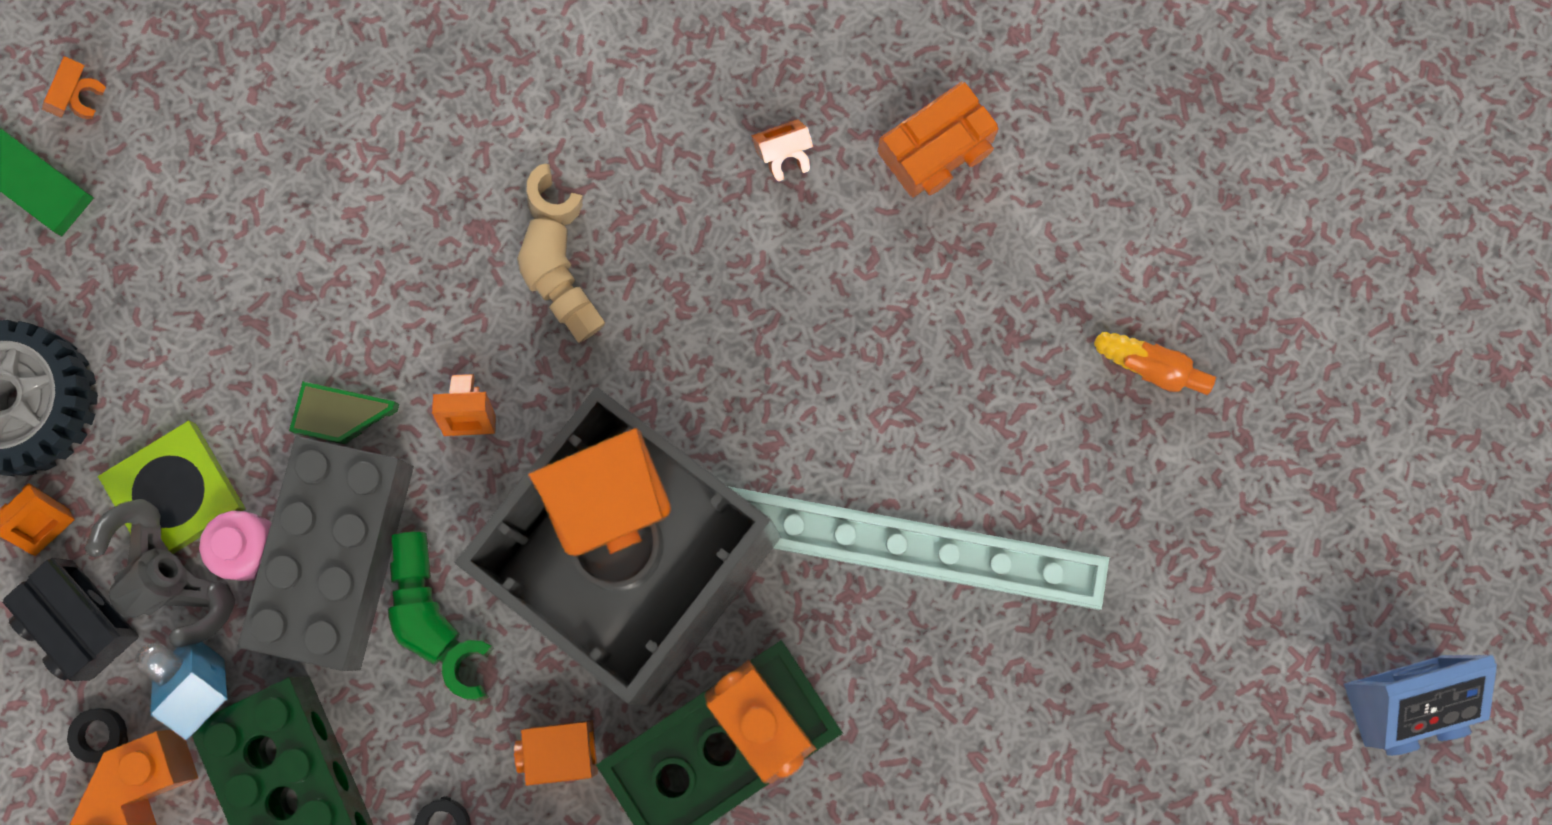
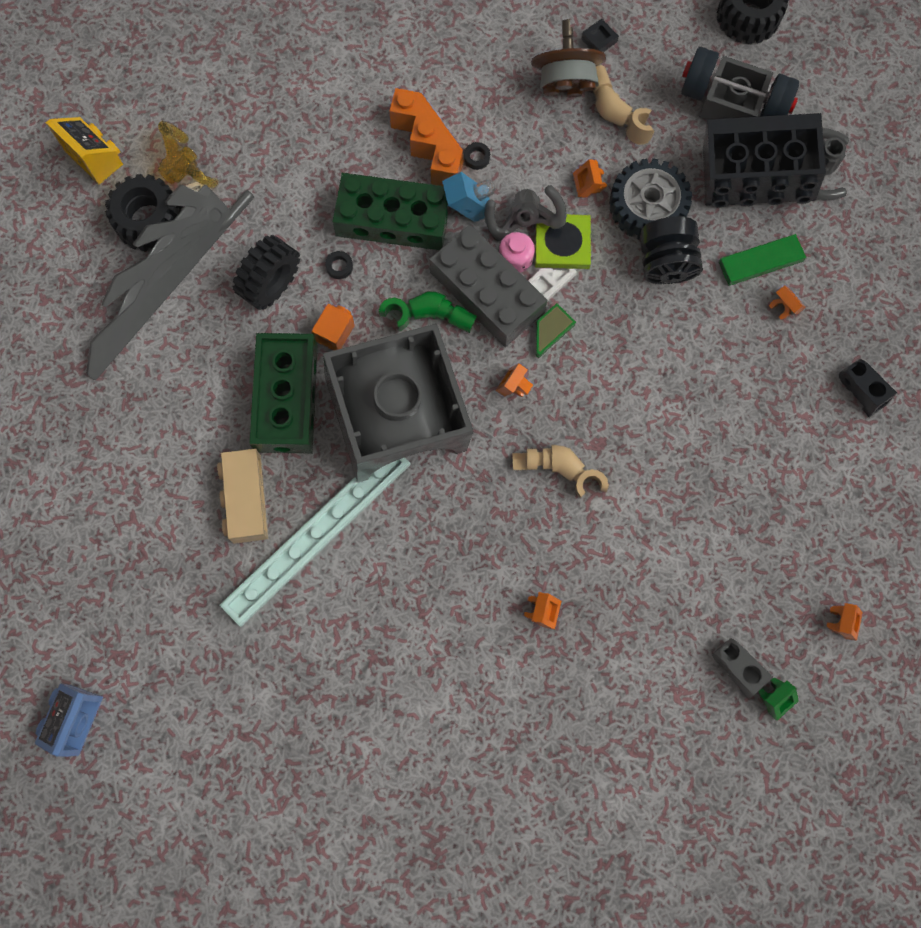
camera: 120 degrees right, 5 degrees down
(68, 620) = (532, 169): black brick -> none
(79, 310) = (671, 250): none -> black wheel
(255, 467) = (550, 281): none -> white tile
(603, 495) = (418, 398): orange torso -> none
(759, 723) = (277, 405): orange torso -> none
(923, 693) = (243, 496): none -> tan brick
(938, 141) = (495, 688): orange brick -> none
(1155, 363) = (311, 717): orange piece -> none

